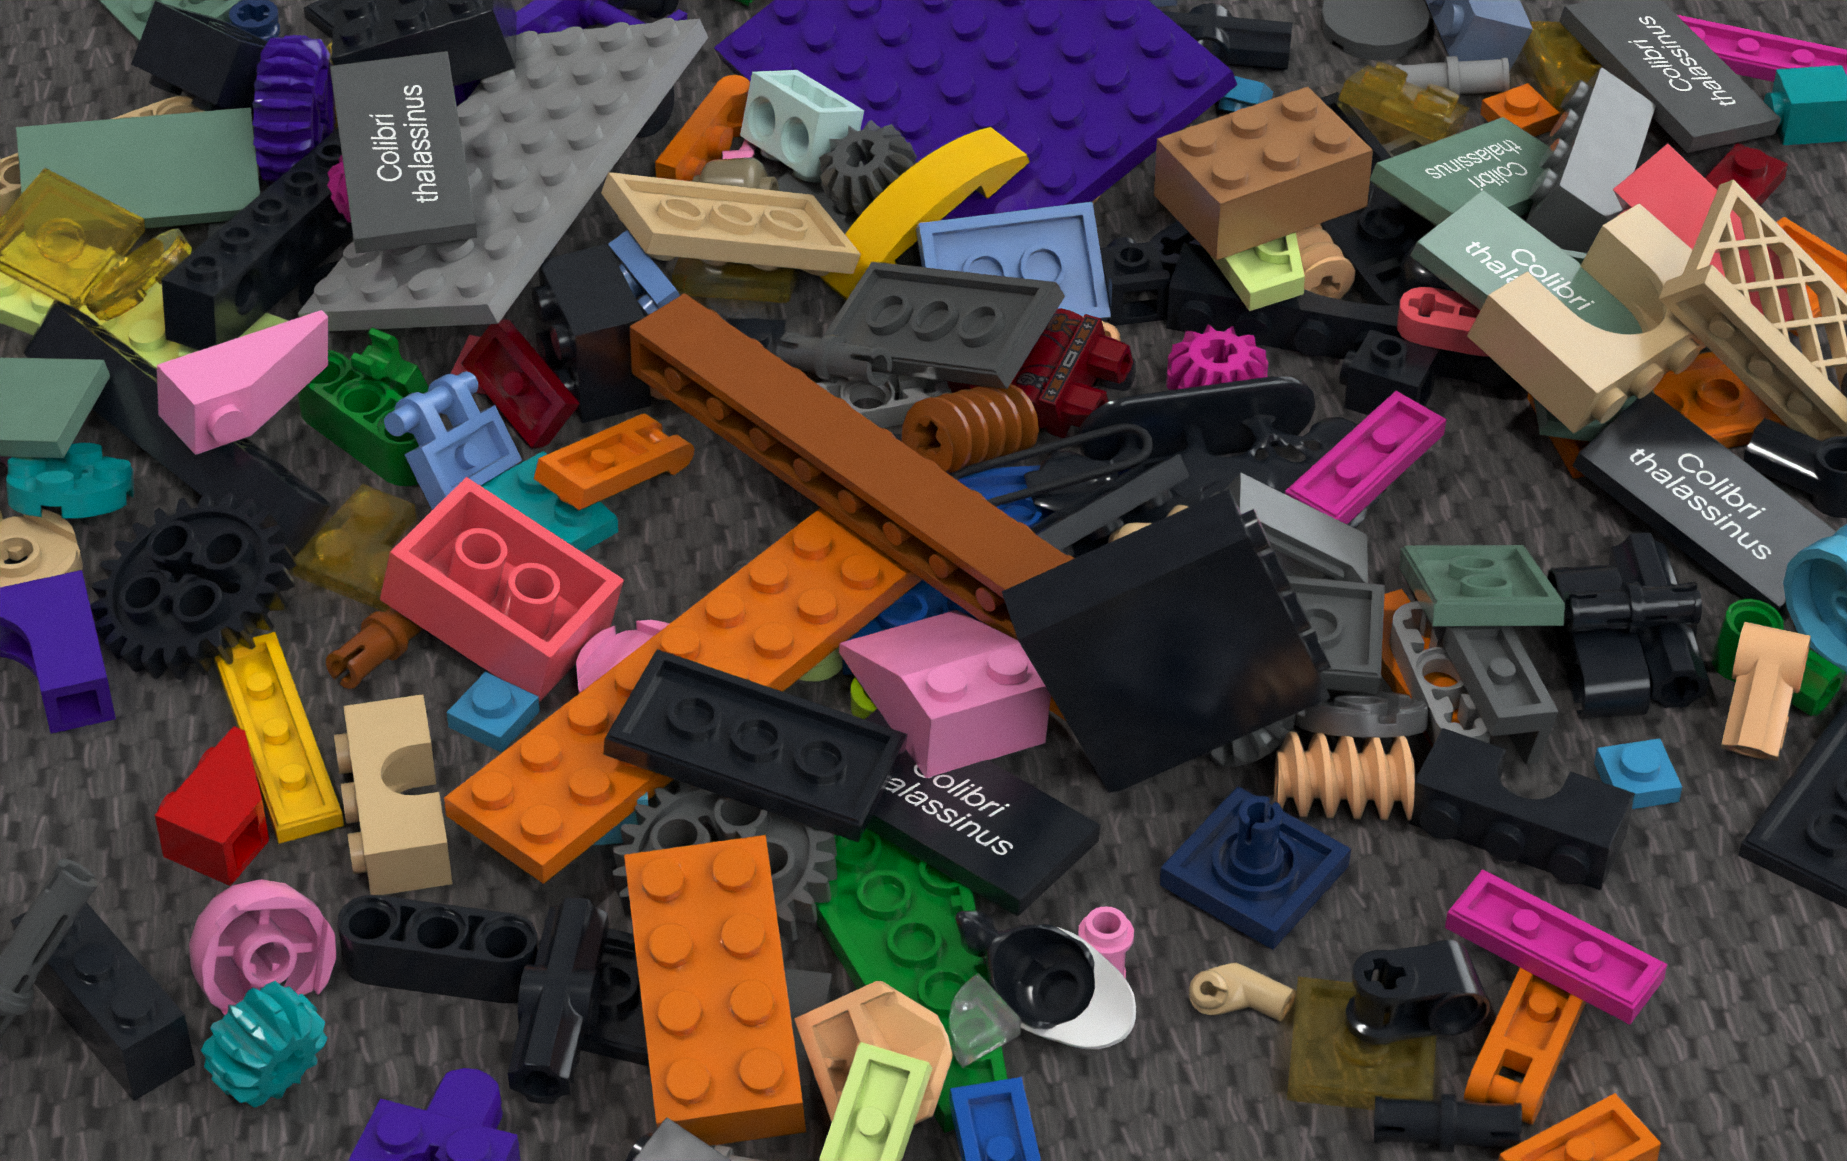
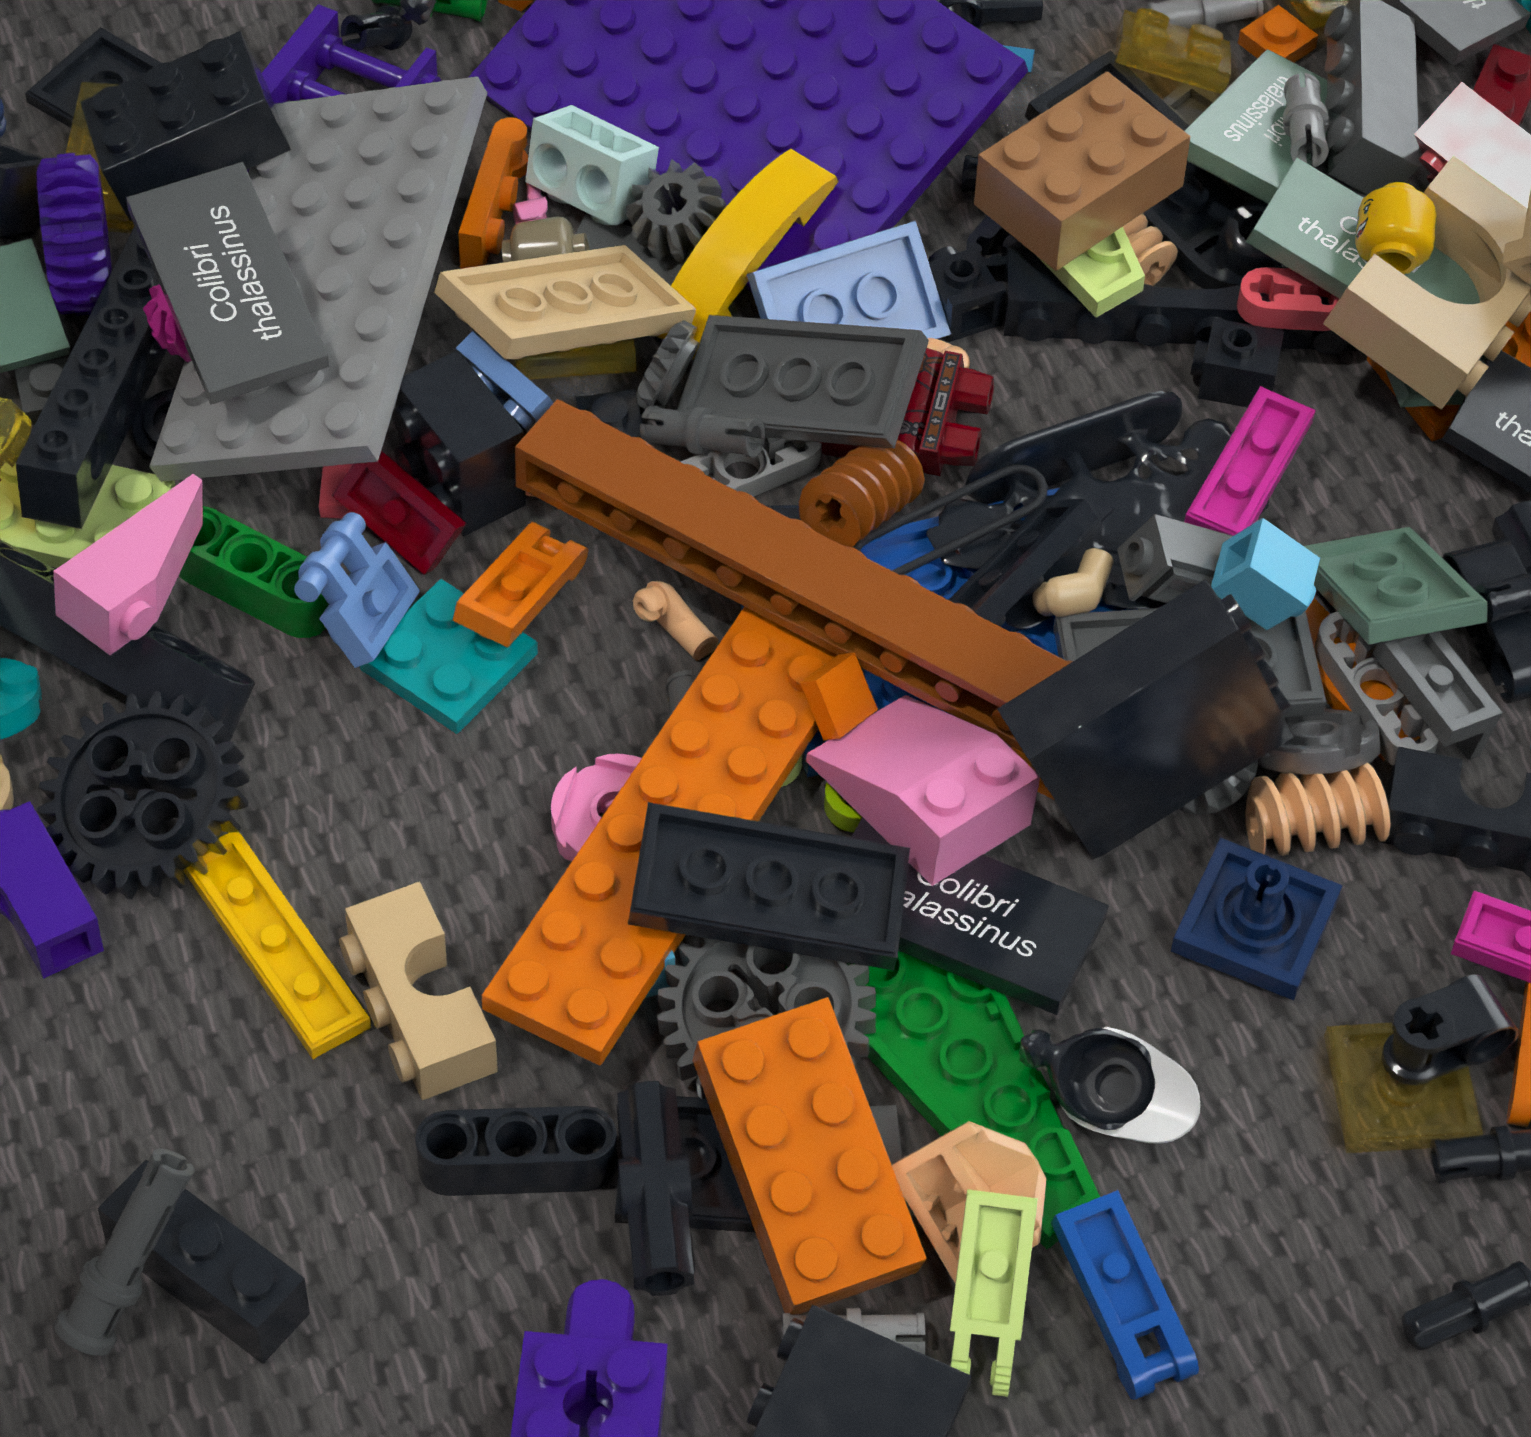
camera: 15 degrees left, 10 degrees up
(217, 813) = (252, 1043): red slope -> none
(259, 937) = (342, 1179): bright pink cylinder -> none
(264, 1044) = (385, 1289): teal gear -> none
(355, 546) = (285, 730): clear yellow plate -> none
(381, 638) = (348, 815): dark orange pin -> none
(385, 364) = (262, 515): green plate -> none
(493, 712) = (480, 878): dark azure plate -> none
(500, 588) = (460, 752): coral brick -> none
(754, 508) = (662, 603): none -> light nougat arm
(819, 298) = (668, 365): none -> dark grey gear
(884, 595) = (839, 696): none -> orange tile
(980, 1021) = (1057, 1134): clear tile -> none
(1109, 934) = (1150, 1021): bright pink pin -> none
(1214, 359) = (1071, 380): dark pink gear -> none
(1239, 987) = (1273, 1048): tan arm -> none
(1343, 547) = (1266, 574): none -> medium azure brick
(1512, 169) = (1306, 119): none -> light grey pin
(1566, 258) = (1396, 226): none -> yellow head

